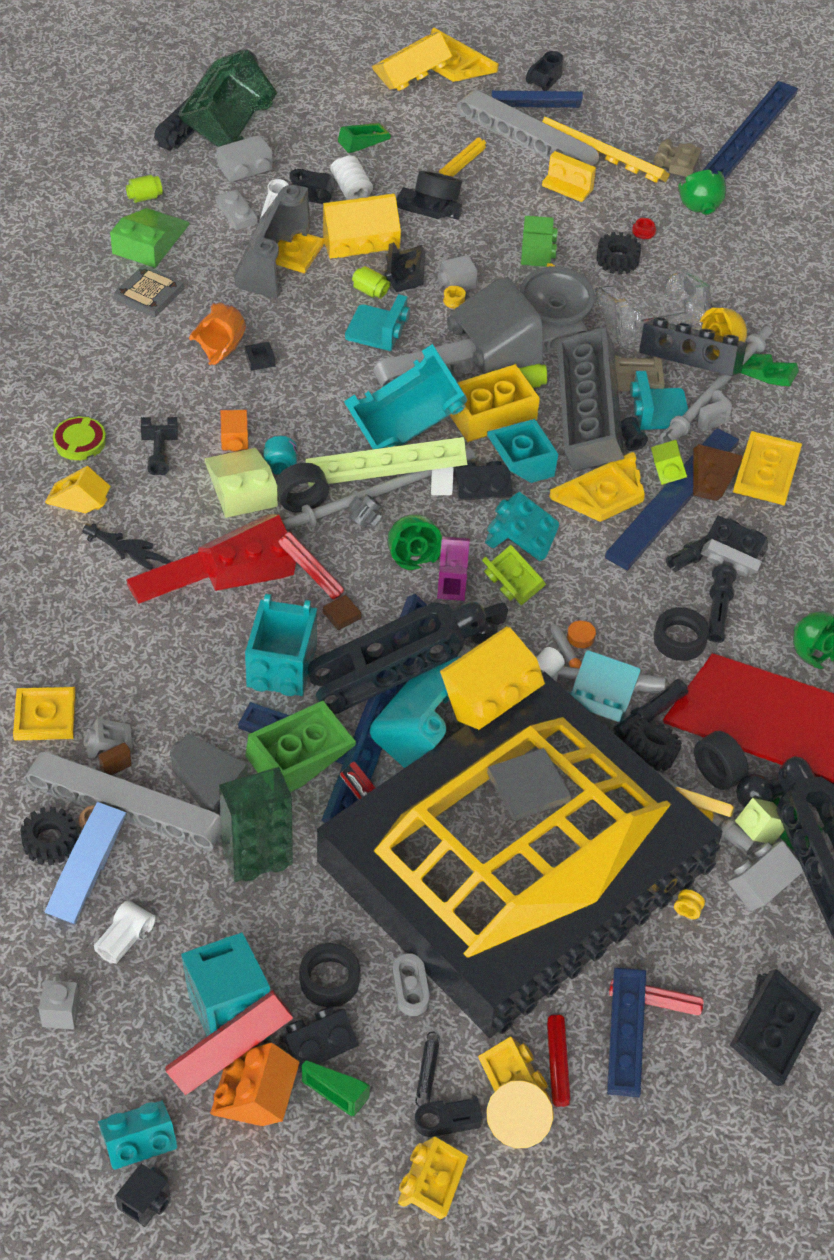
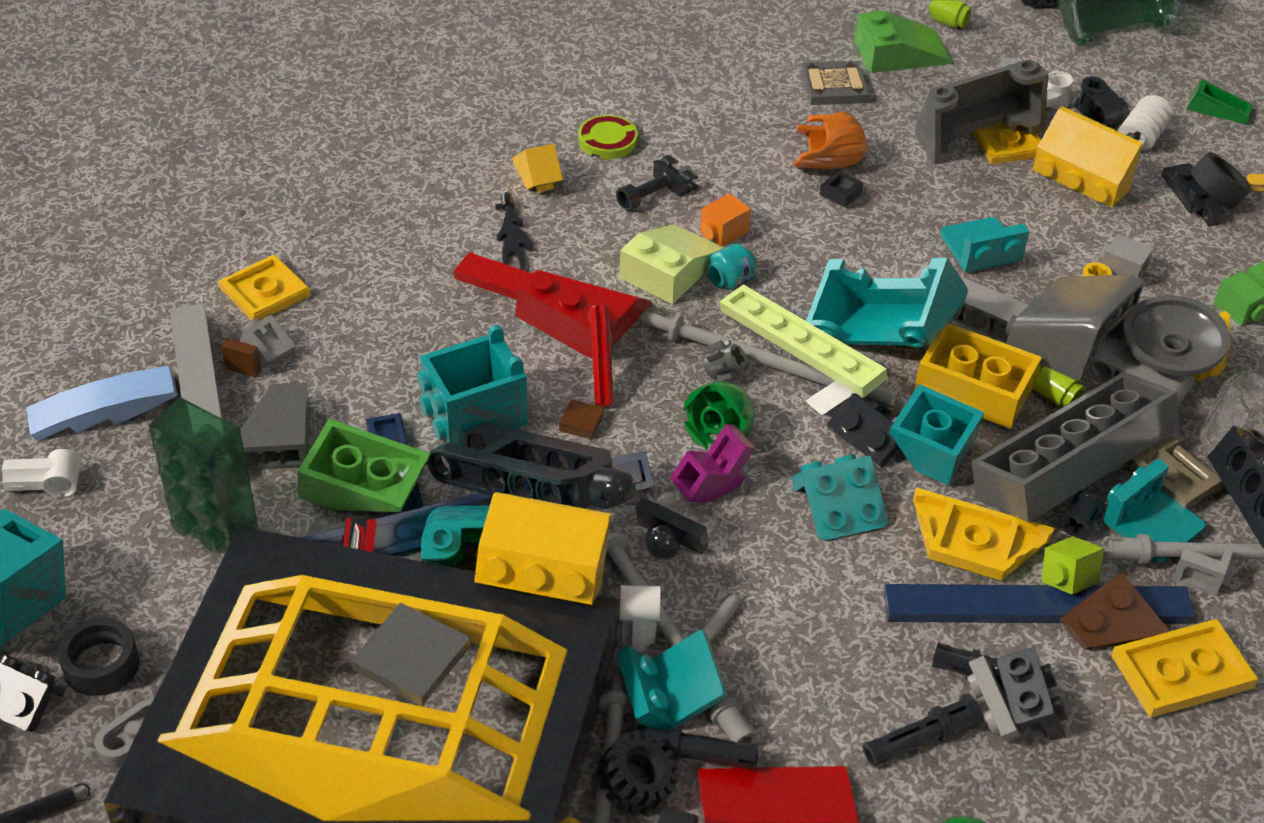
camera: 55 degrees right, 5 degrees down
(46, 821) = (114, 351): black tyre -> none
(244, 158) = (1070, 44): light grey brick -> none
(297, 475) = (707, 286): black tyre -> none
(370, 282) = (1032, 208): lime brick -> none
(405, 268) = (1082, 218): black bracket -> none
(515, 575) = (762, 521): lime bracket -> none
(581, 634) = (748, 627): orange tile -> none
(681, 650) = (835, 742): black tyre -> none

